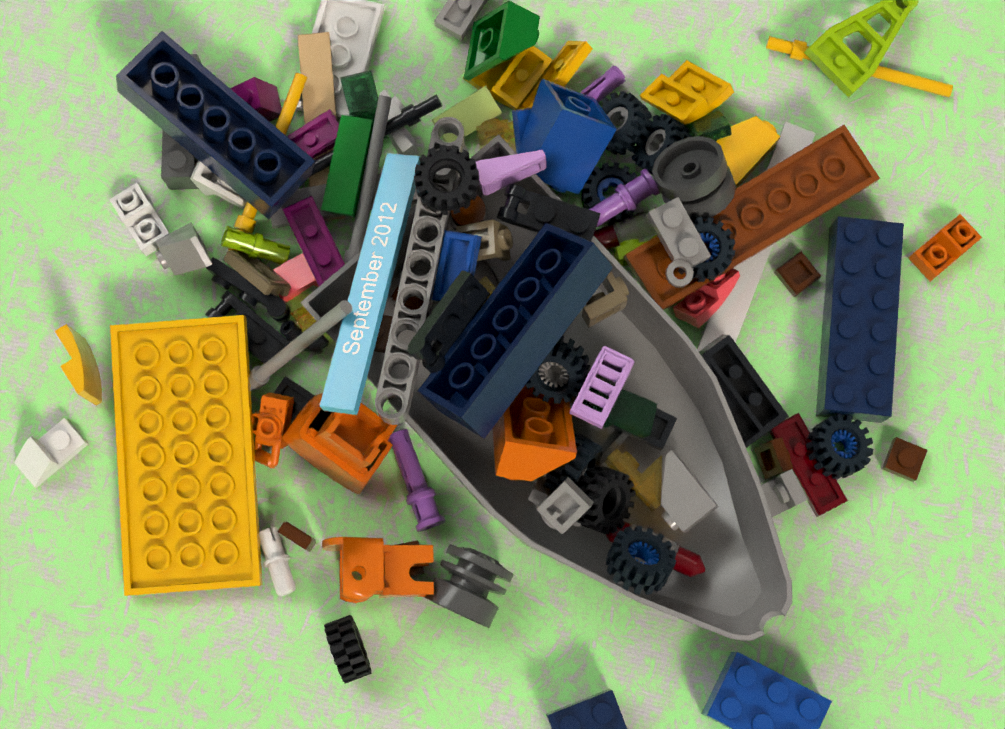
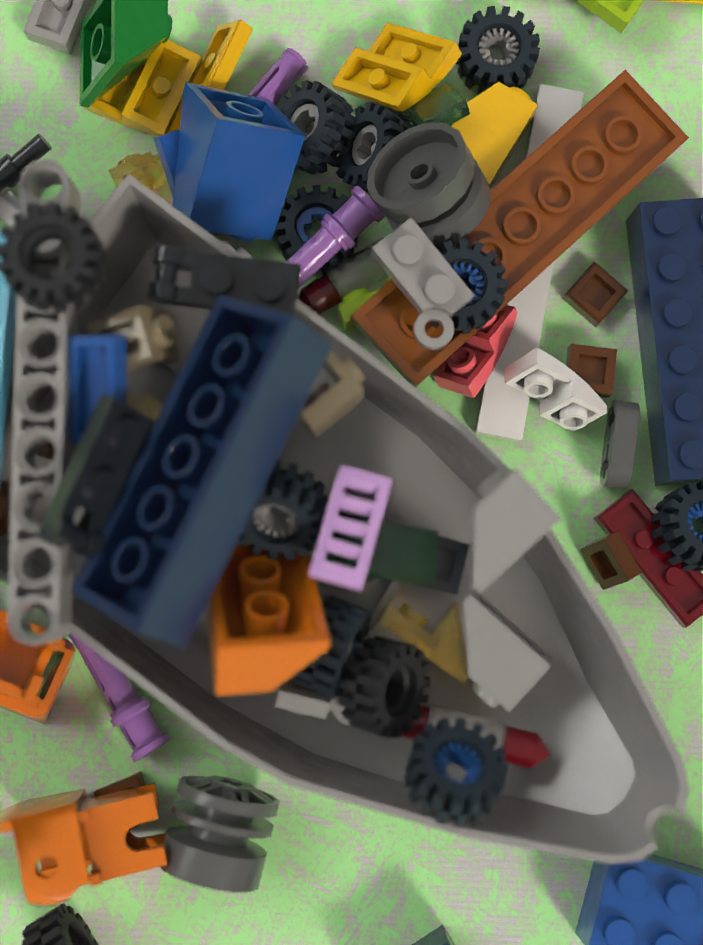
camera: 15 degrees left, 5 degrees up
(471, 112) = (98, 152): yellowish green tile -> none
(473, 214) = (108, 301): reddish brown tile -> none
(505, 170) = (137, 229): lavender slope -> none
(564, 506) = (328, 716): light grey bracket -> none
(702, 404) = (505, 525): none -> light grey slope
(746, 394) = (553, 472): black wedge -> none
(760, 335) = (561, 392): none -> white slope
(765, 79) = (500, 30): none -> black bush
(783, 325) = (594, 366): none -> reddish brown plate
(783, 493) = (633, 607): light grey bracket -> none
(795, 379) = (619, 444): none -> dark grey beam

